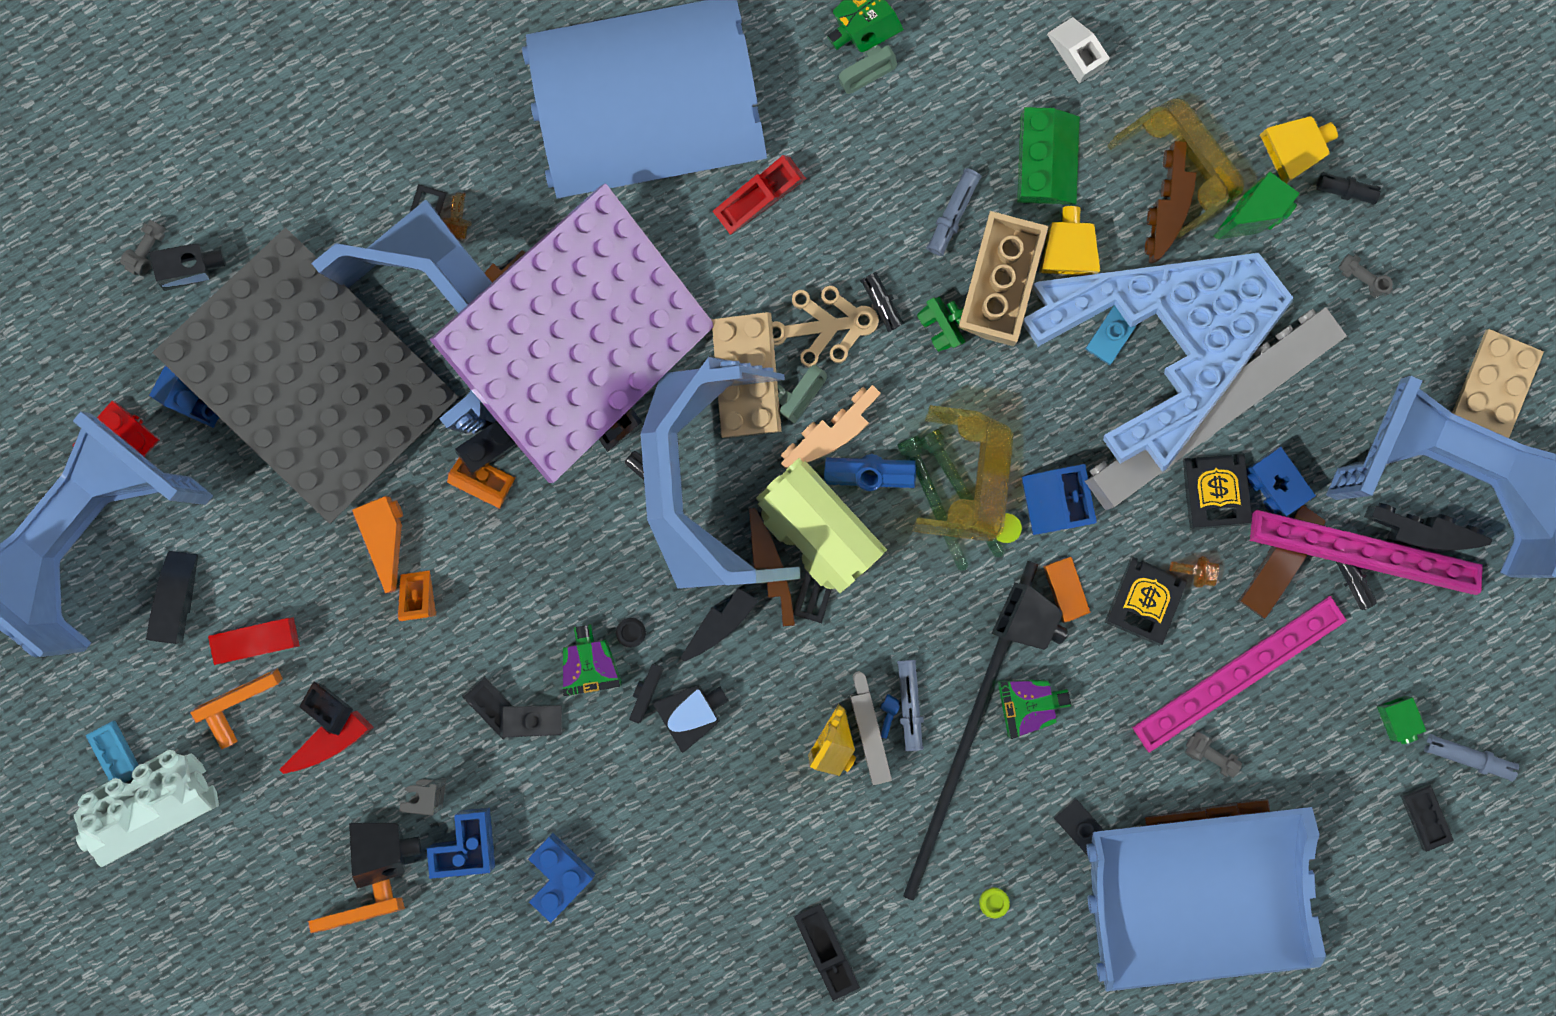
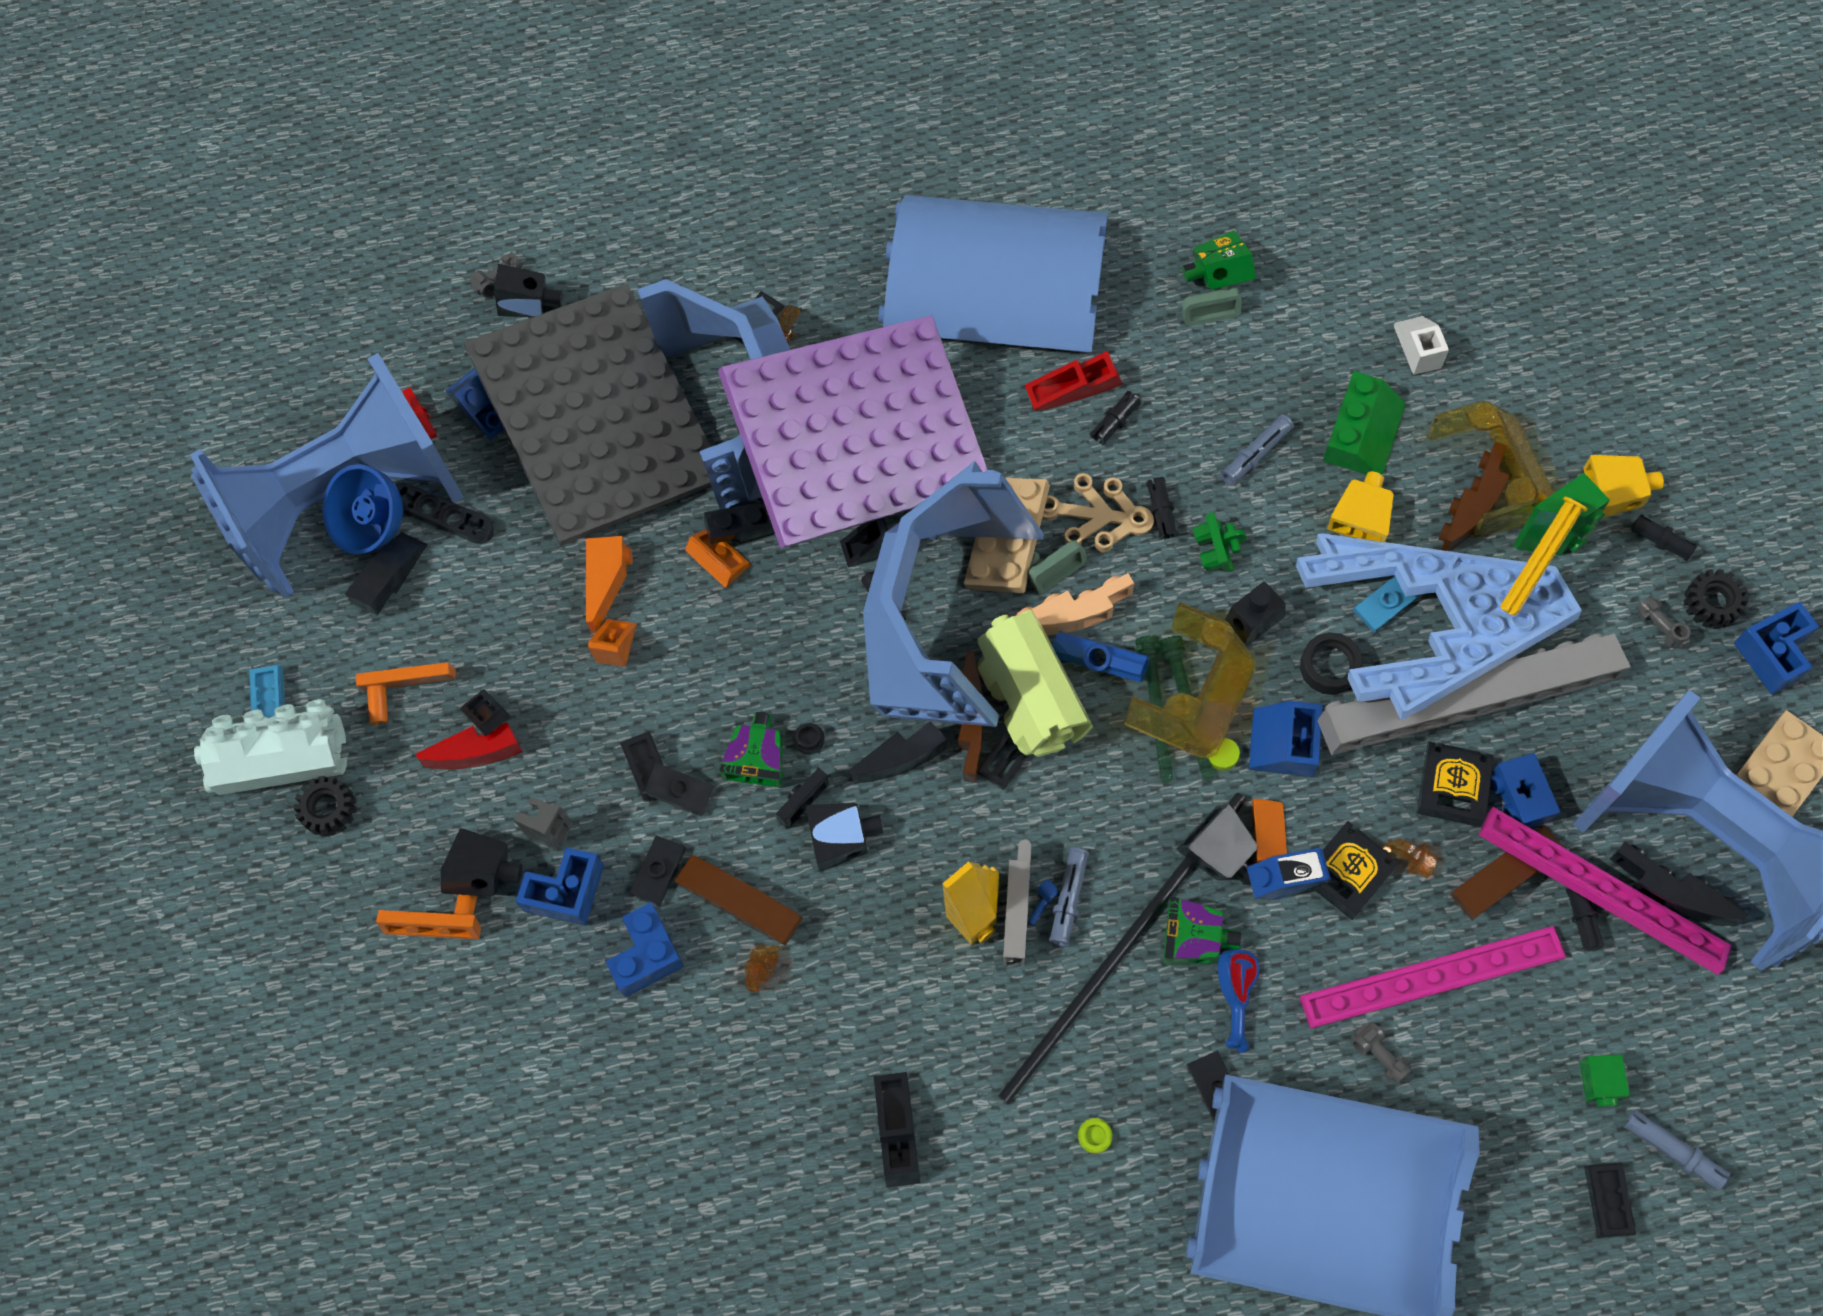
camera: 25 degrees right, 20 degrees down
(124, 550) = (362, 509): none -> blue piece
(198, 522) = (443, 510): none -> black beam
(198, 843) = (318, 790): none -> black tyre
(253, 641) = (445, 632): red slope -> none
(540, 798) = (657, 870): none -> black plate
(622, 803) = (739, 900): none -> reddish brown slope
(663, 849) = (760, 966): none -> clear orange piece
(810, 218) = (1115, 417): none -> black pin
(998, 389) = (1257, 612): none -> black torso
(1003, 278) = (1288, 516): tan slope -> none
(1074, 729) = (1237, 975): none -> blue piece
(1095, 629) = (1288, 874): none -> blue slope
(1101, 407) = (1331, 640): none -> black tyre
(1250, 265) = (1542, 556): none -> yellow axle
(1419, 226) = (1727, 587): none -> black tyre
(1466, 274) = (1773, 649): none -> blue brick

